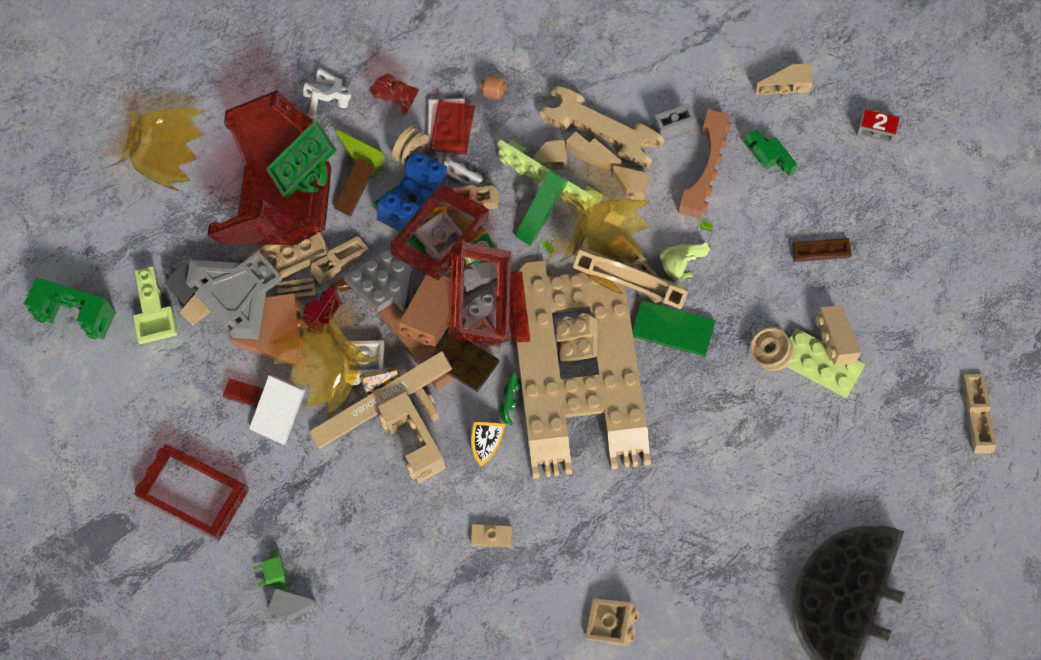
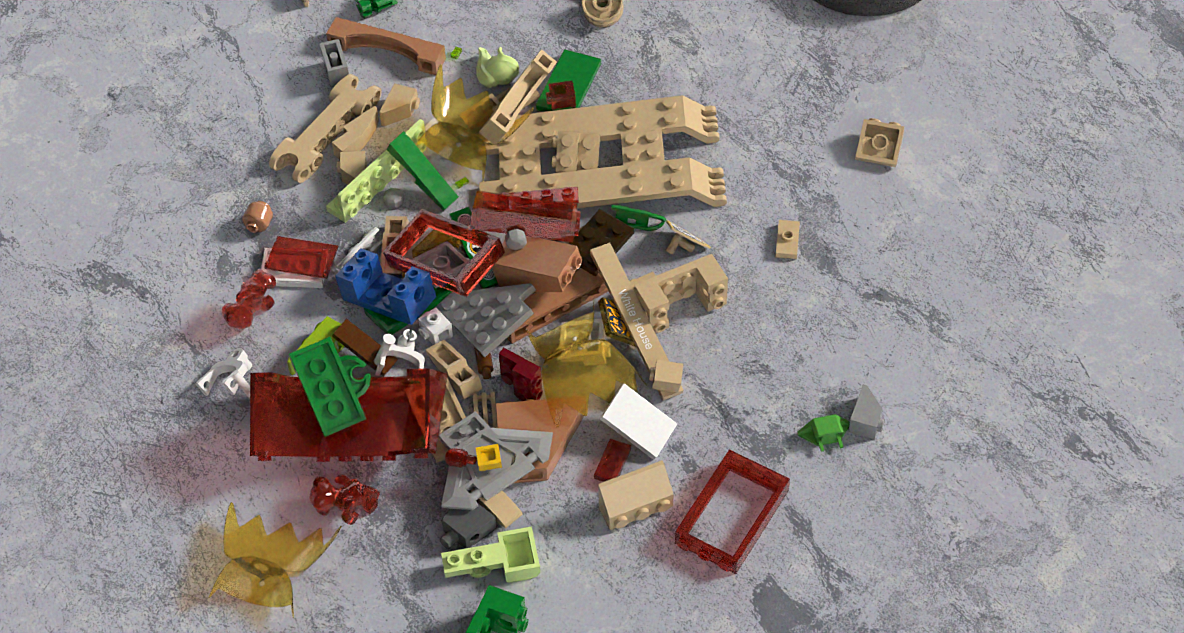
camera: 90 degrees left, 15 degrees down
(201, 412) = (635, 495): none -> tan slope
(208, 177) = (346, 498): none -> clear red animal
(227, 288) = (488, 457): none -> yellow plate
(229, 266) = (459, 458): none -> clear red cylinder
(321, 429) = (666, 376): none -> tan brick
(355, 216) = (404, 349): none -> white piece
(379, 239) = (435, 326): none -> white brick
(409, 142) = (323, 289): tan wheel -> none
(443, 285) = (515, 239): none -> light grey tile
(649, 326) = (561, 95): none -> clear red brick

